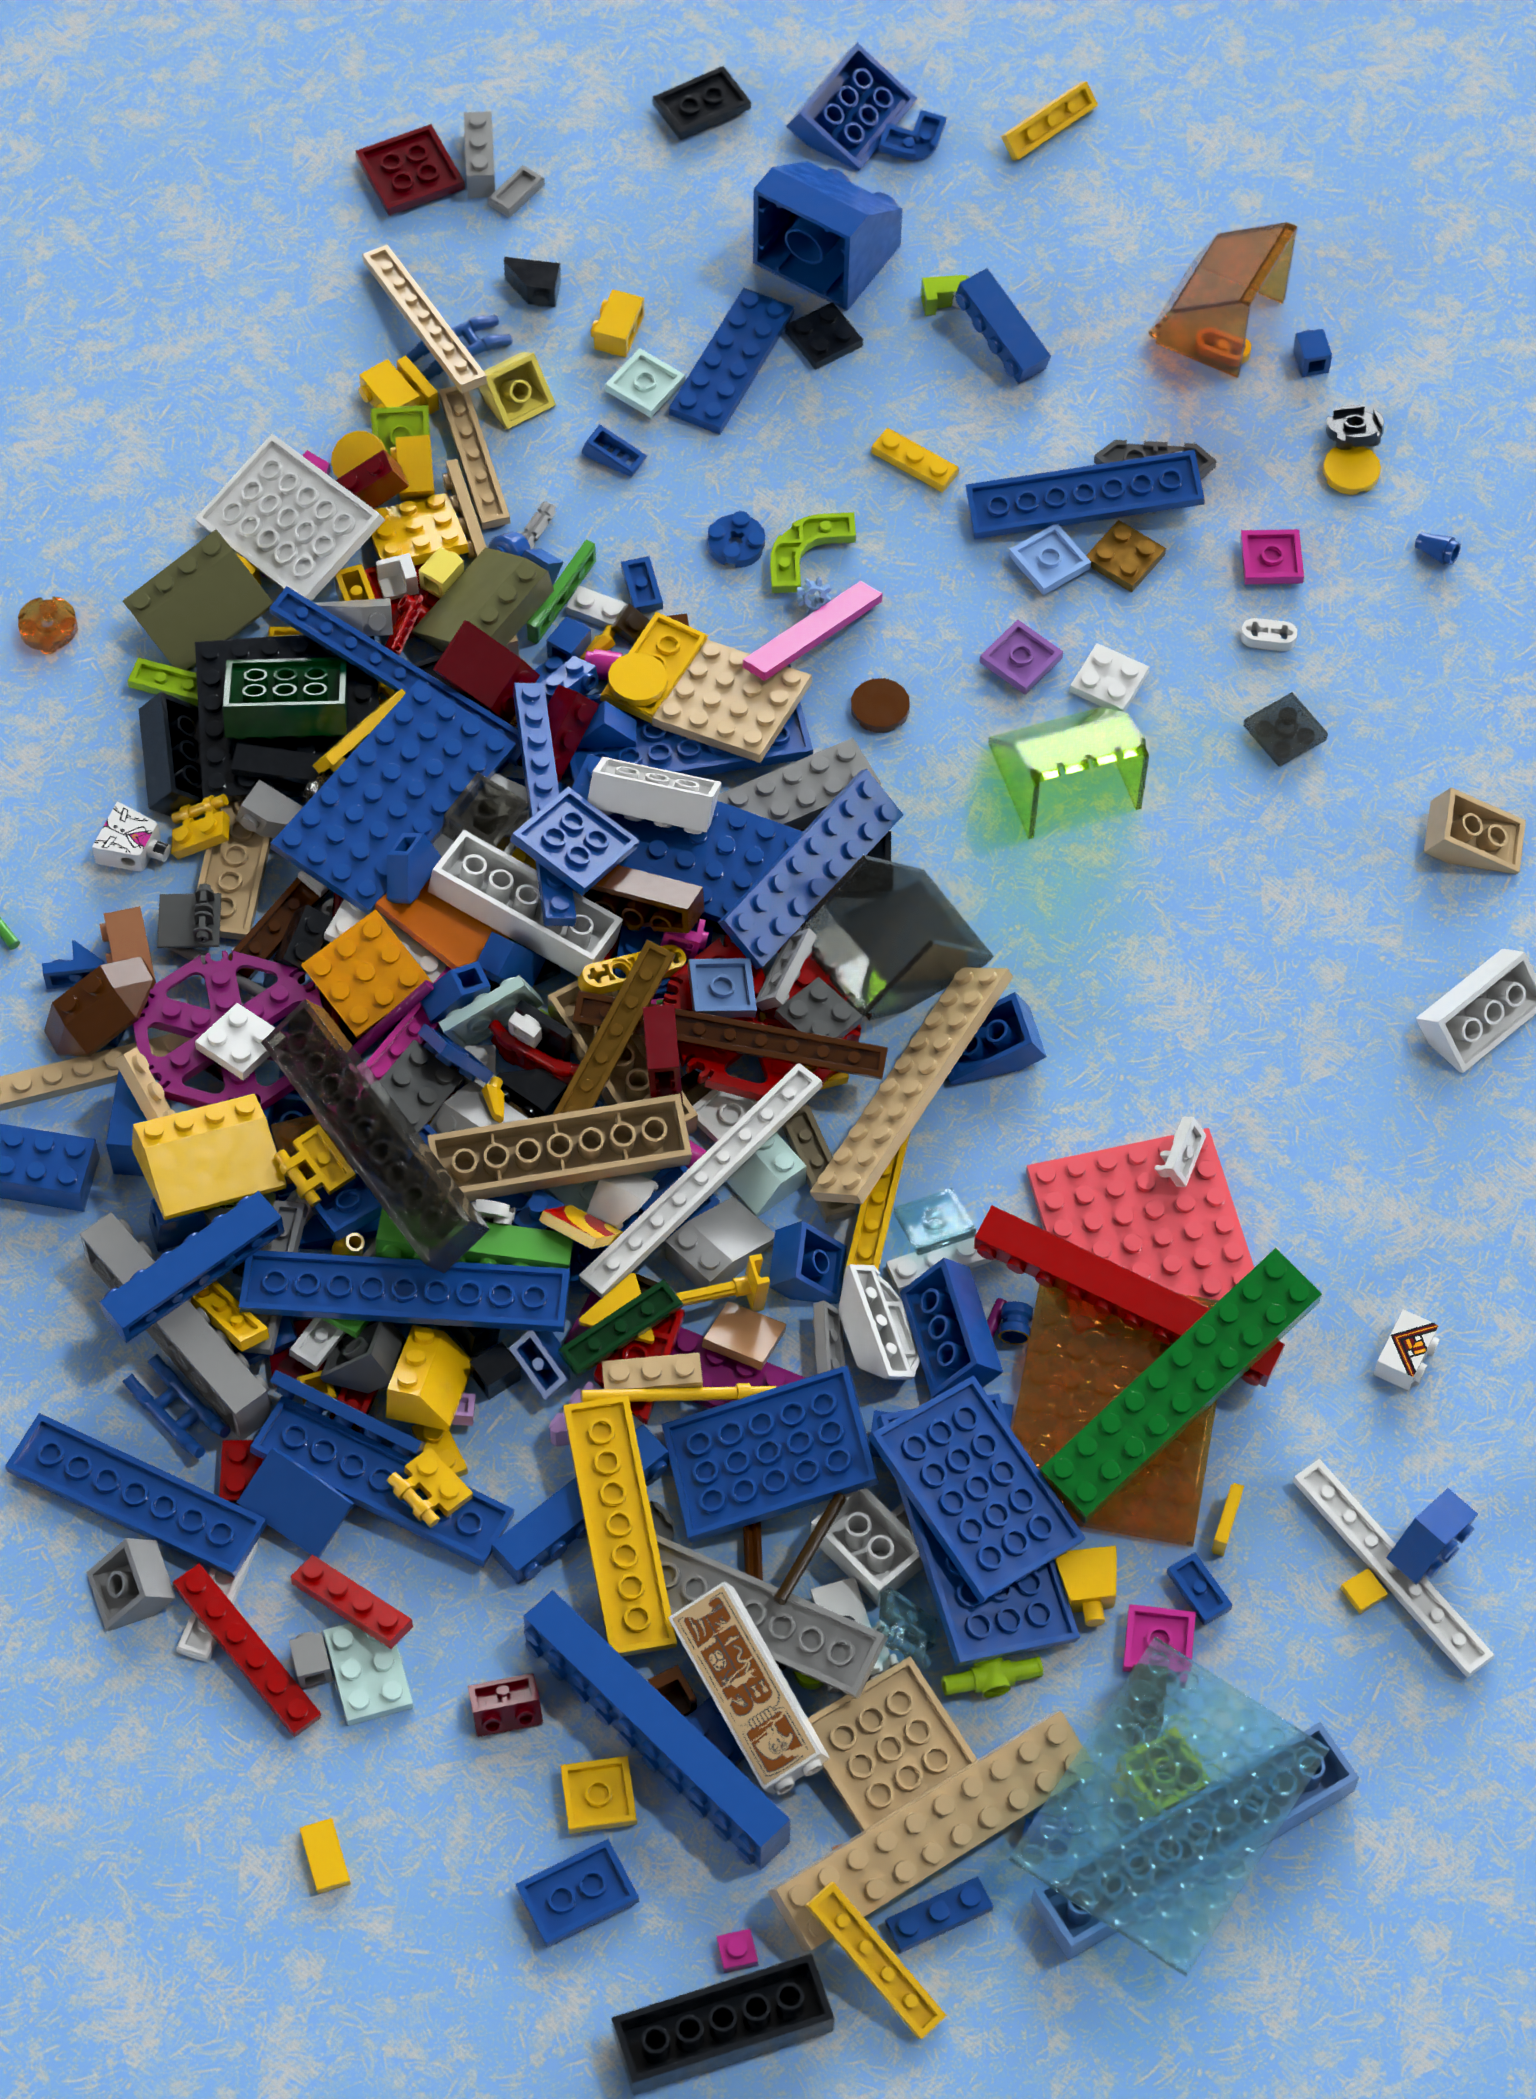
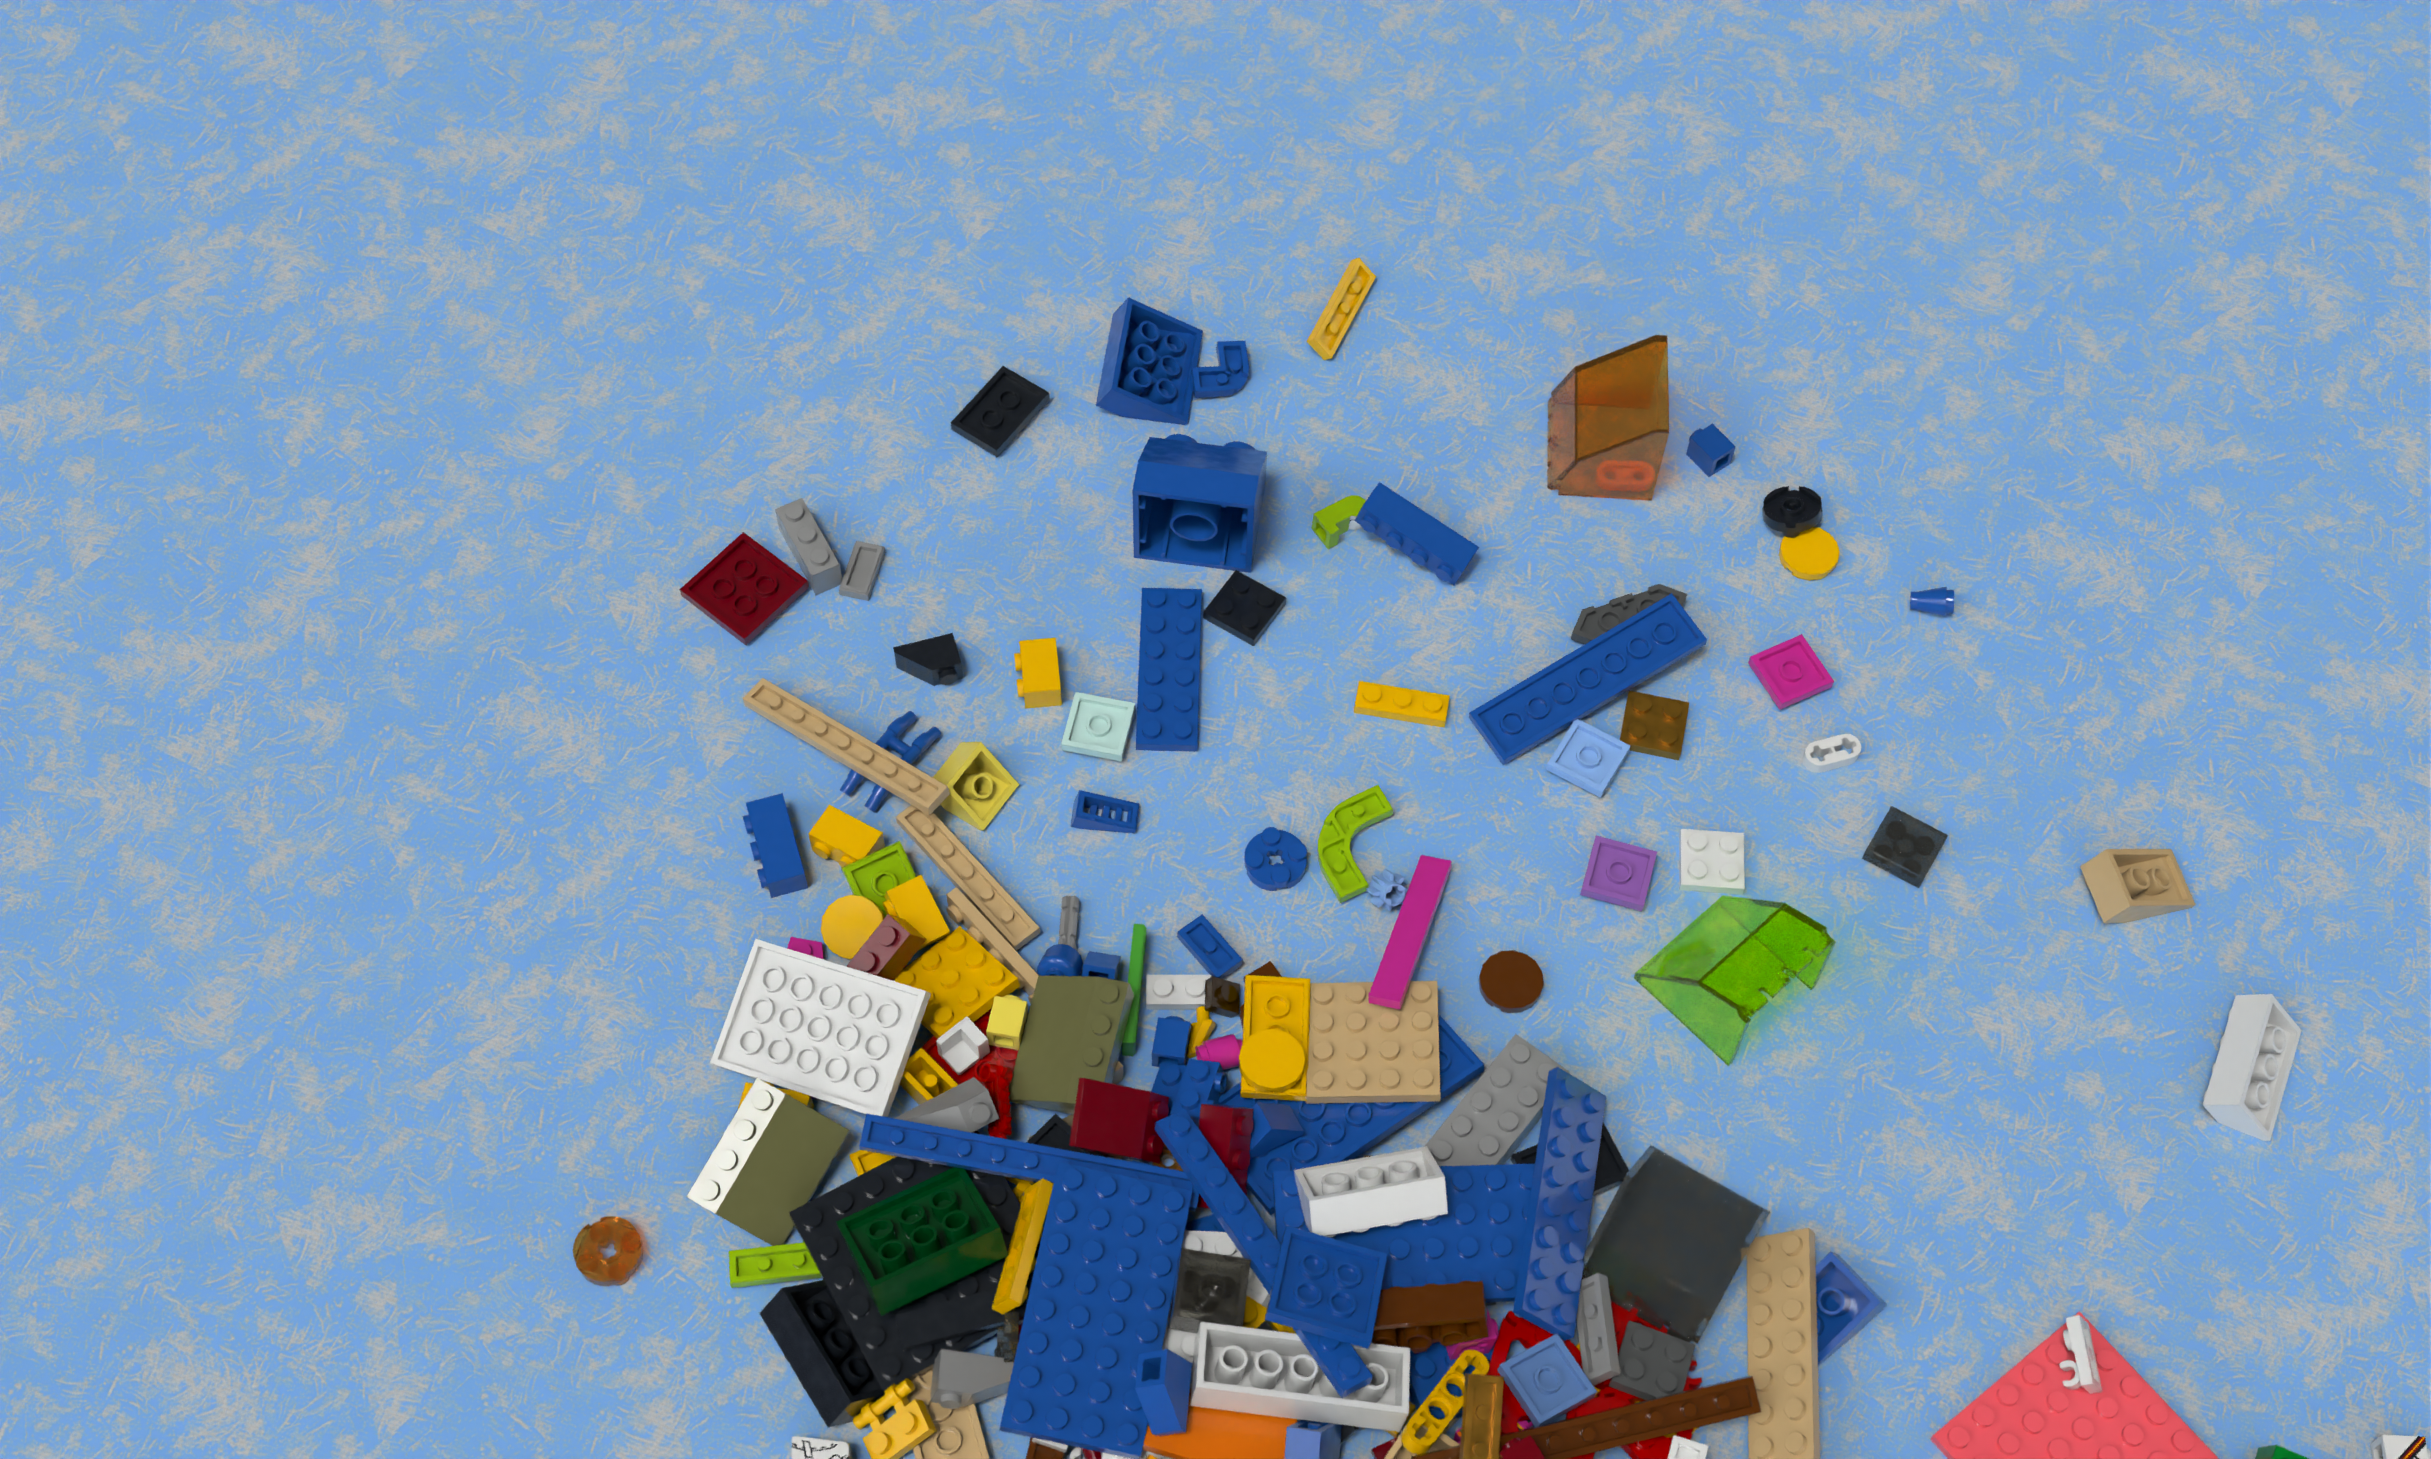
camera: 25 degrees left, 0 degrees up
(330, 376) = (775, 846): none -> blue brick
(425, 390) = (872, 817): yellow plate -> none

